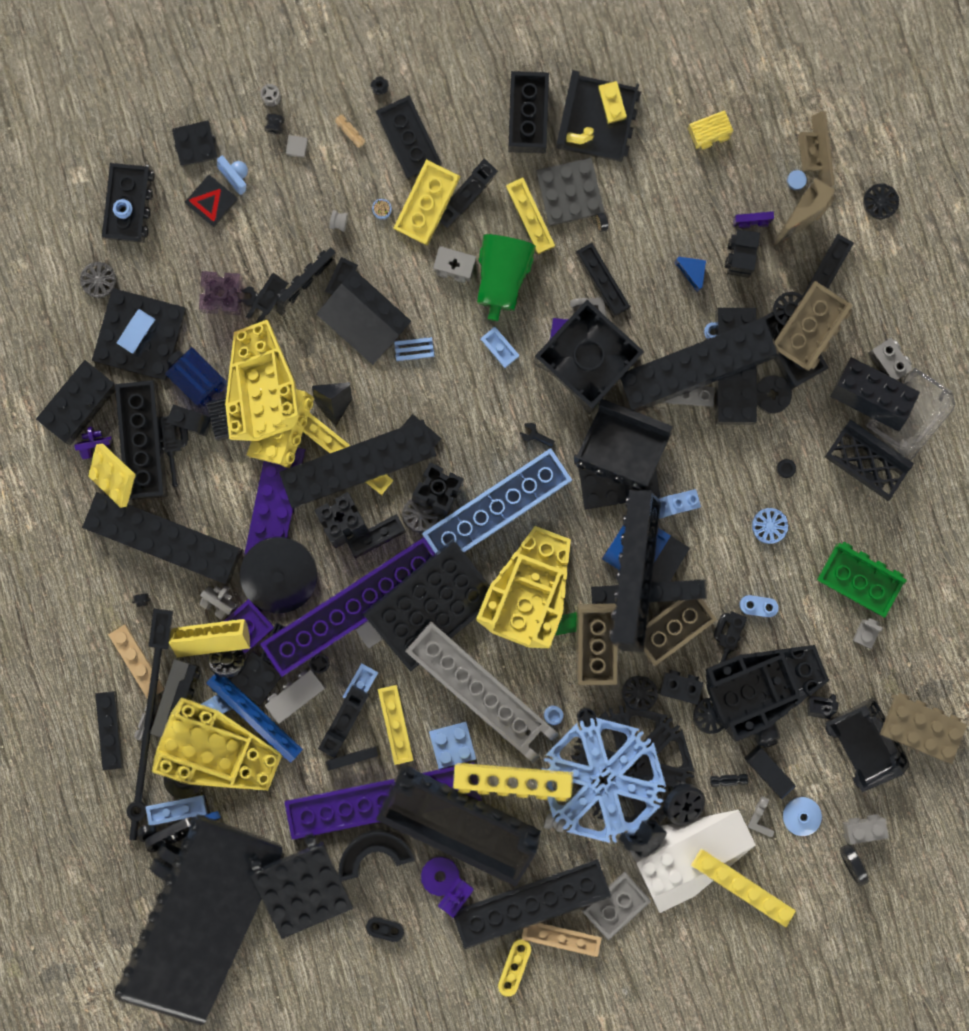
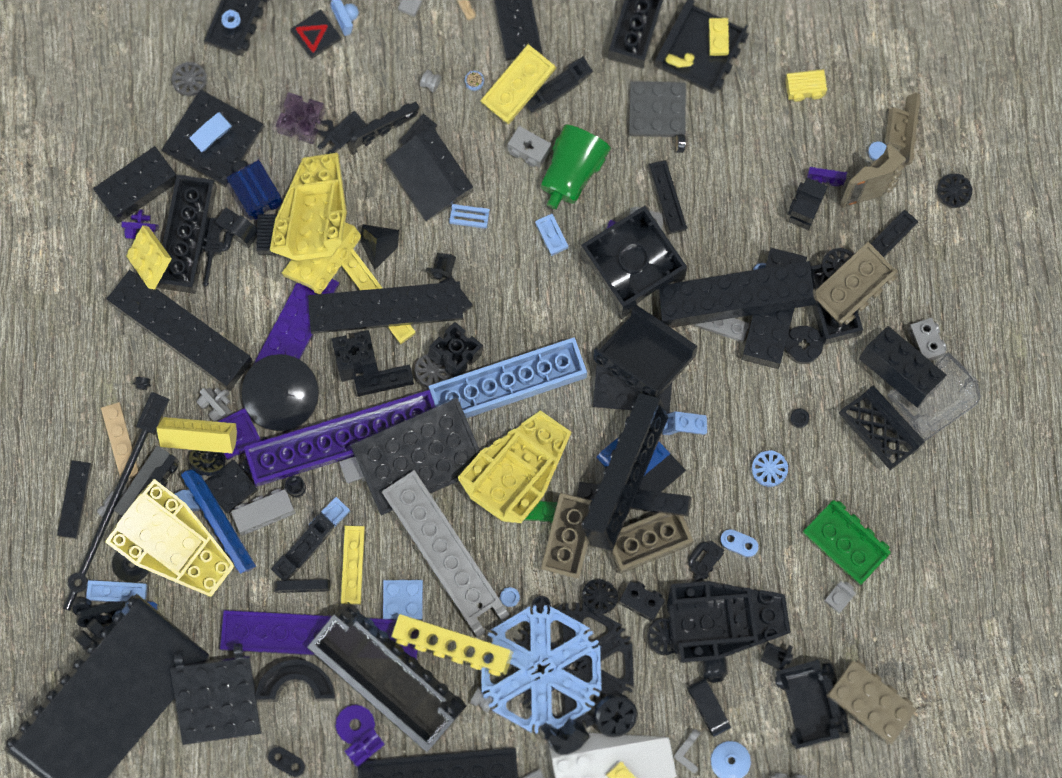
camera: 15 degrees right, 10 degrees down
(402, 407) = (442, 266): none -> black bracket
(530, 216) = (613, 121): light yellow plate -> none
(535, 435) = (563, 325): black bar -> none
(693, 270) = (755, 208): blue slope -> none
(729, 780) = (666, 705): black axle -> none

